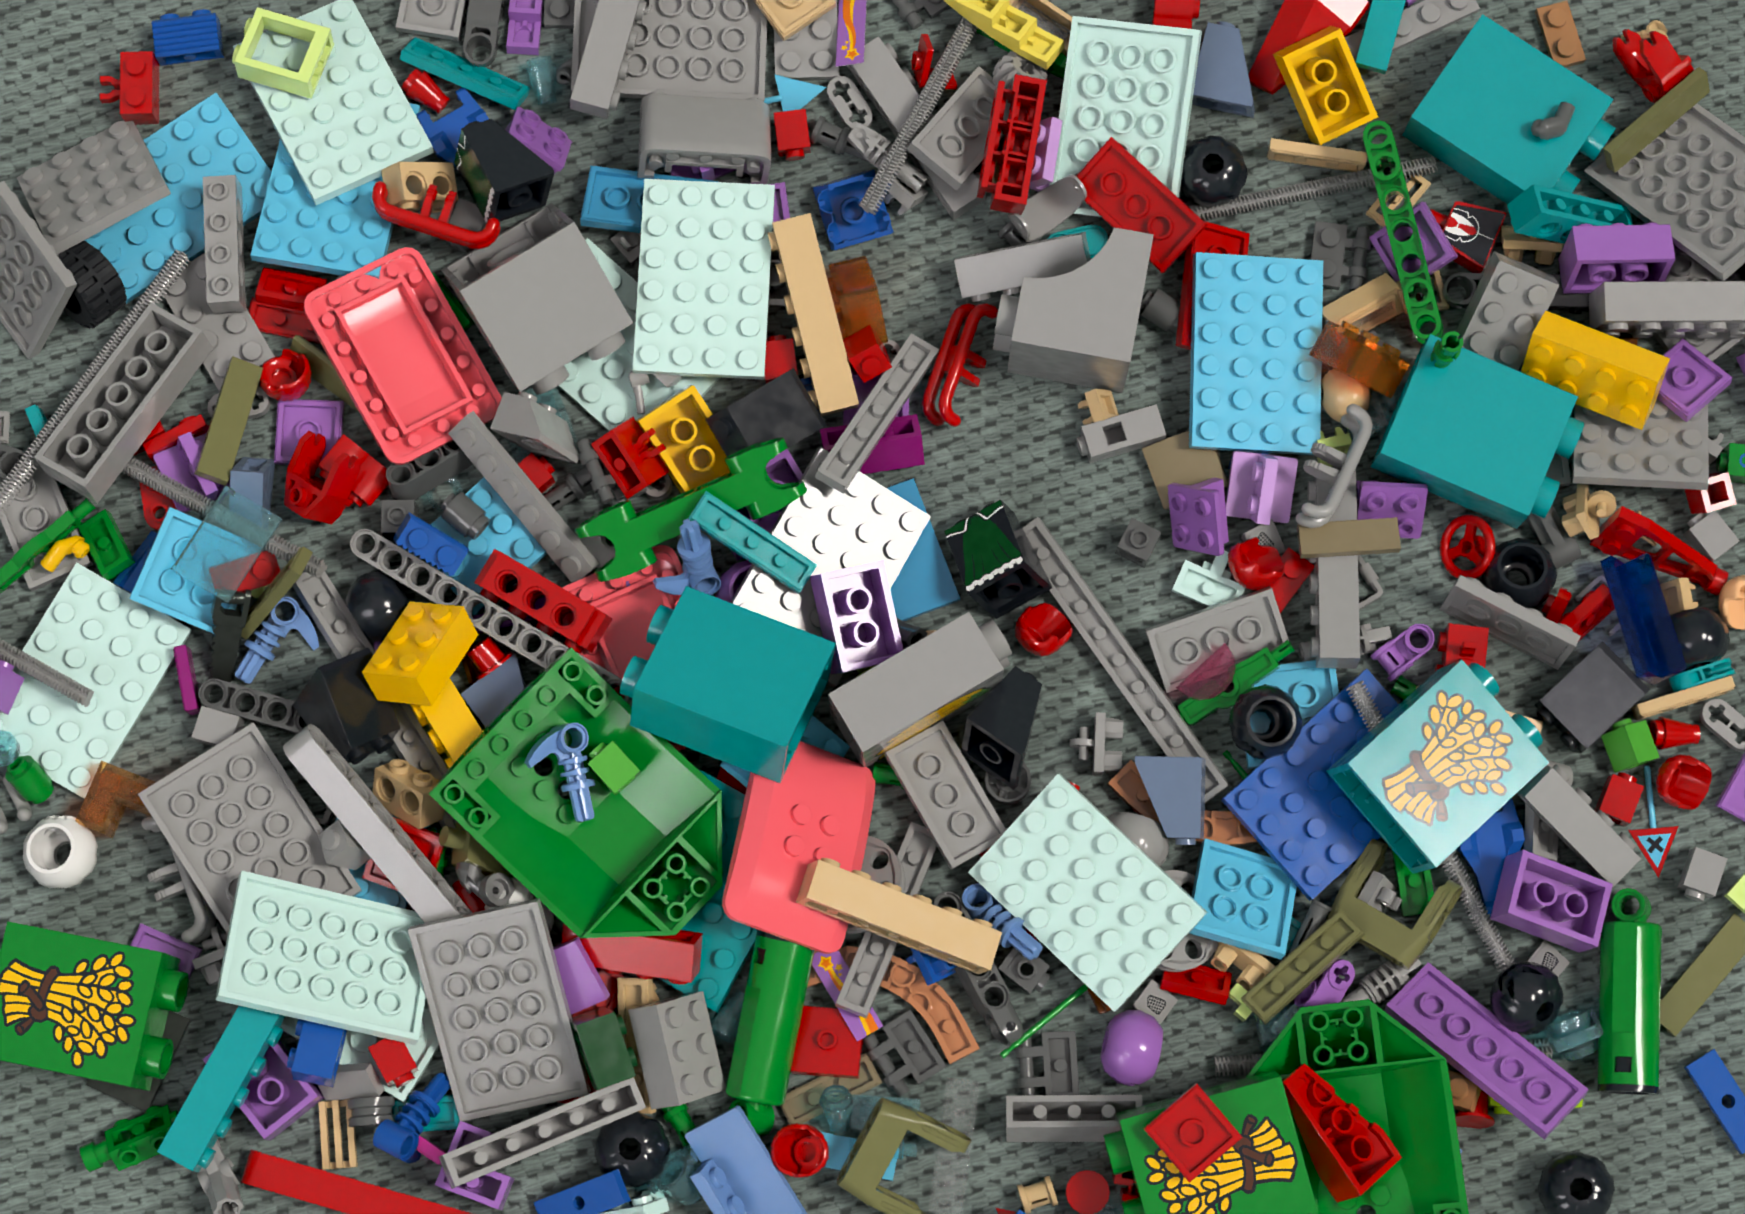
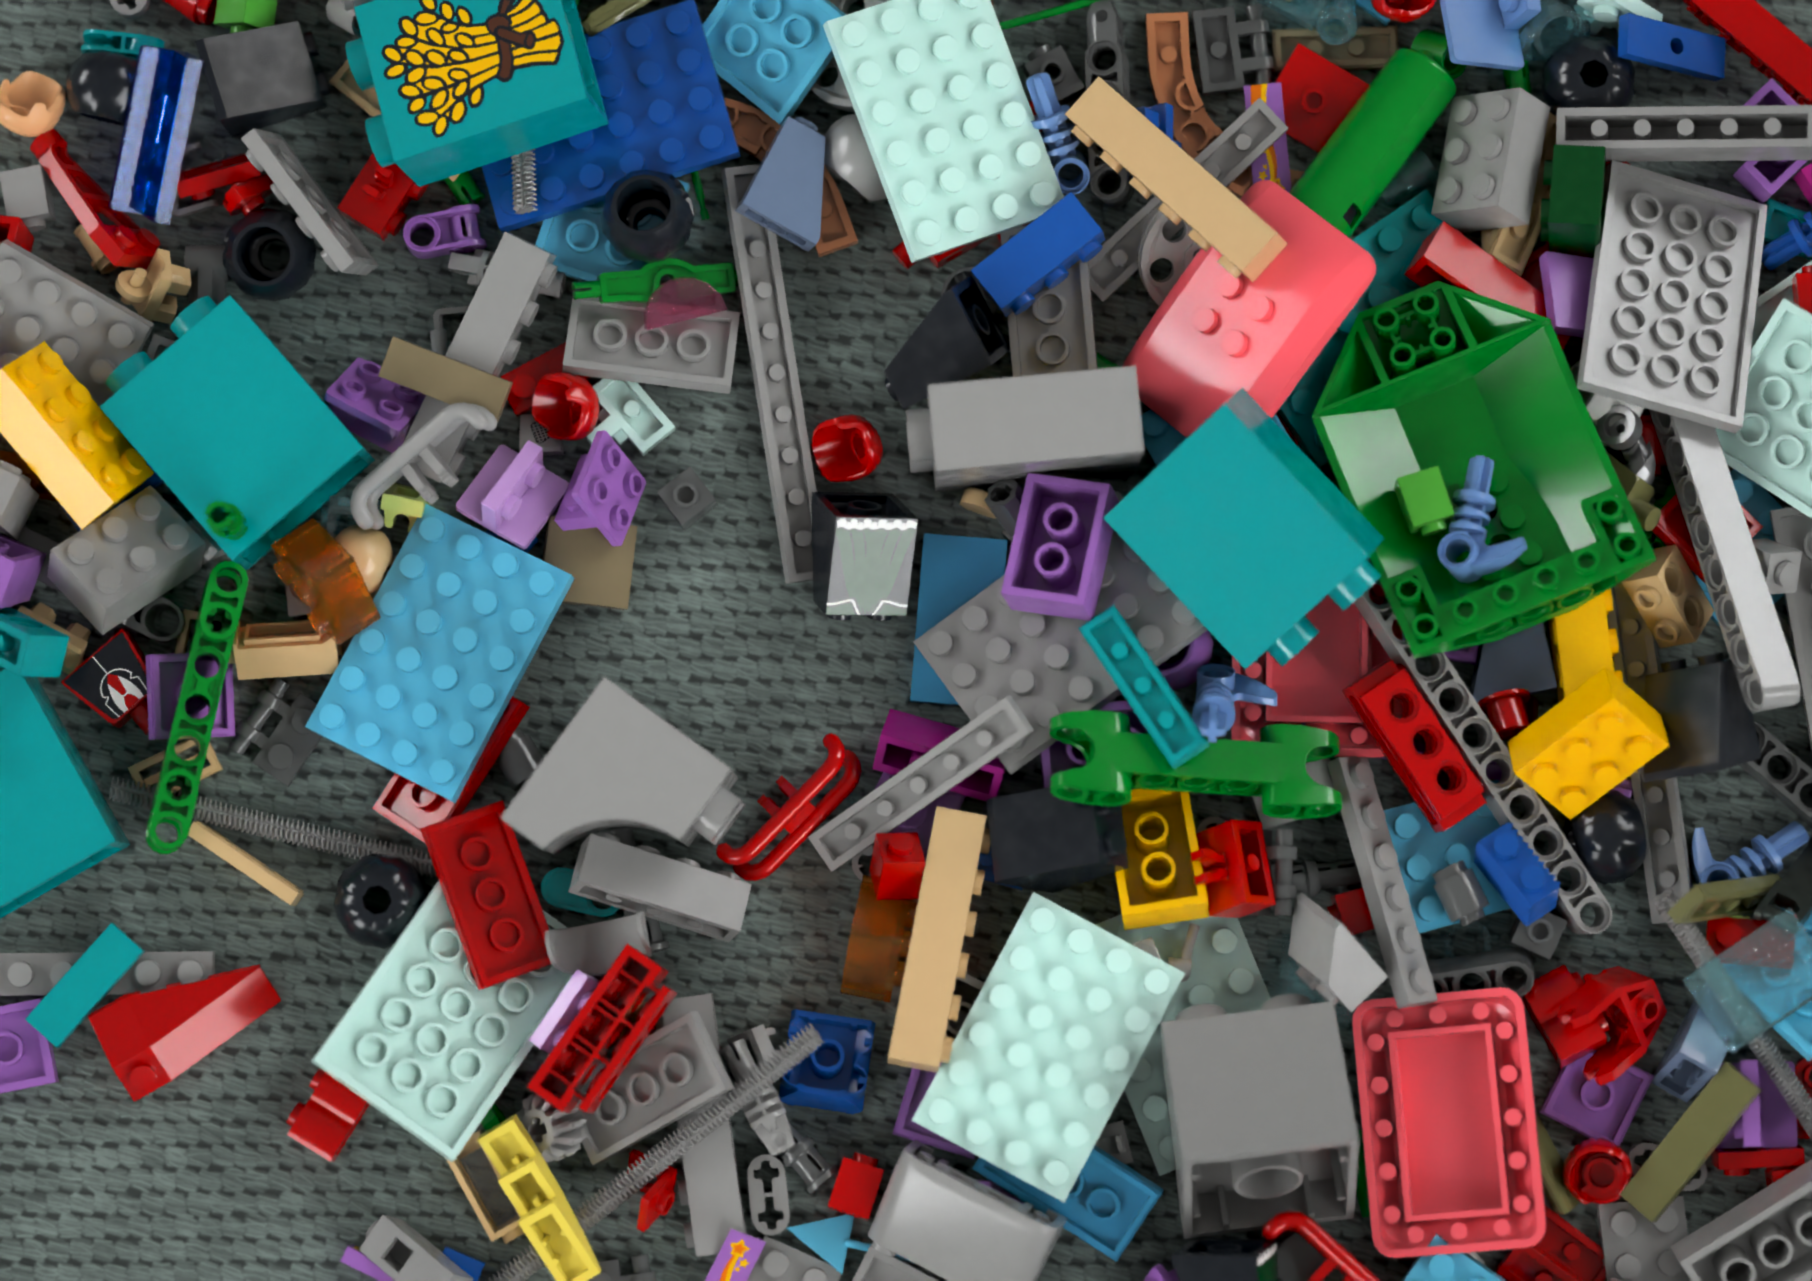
camera: 155 degrees left, 5 degrees up
(779, 357) = (1000, 913): red brick -> none
(970, 822) = (1039, 255): none -> blue brick
(1100, 405) = (650, 679): tan tile -> none
(1103, 729) = (849, 269): light grey hips -> none
(1121, 434) = (643, 636): light grey brick -> none
(1222, 72) = (302, 1018): sand blue slope -> none
(1325, 85) = (193, 936): yellow brick -> none
(1474, 547) = (304, 312): red piece -> none
(1678, 595) = (101, 146): tan tile -> none
(1683, 698) = (171, 32): tan tile -> none

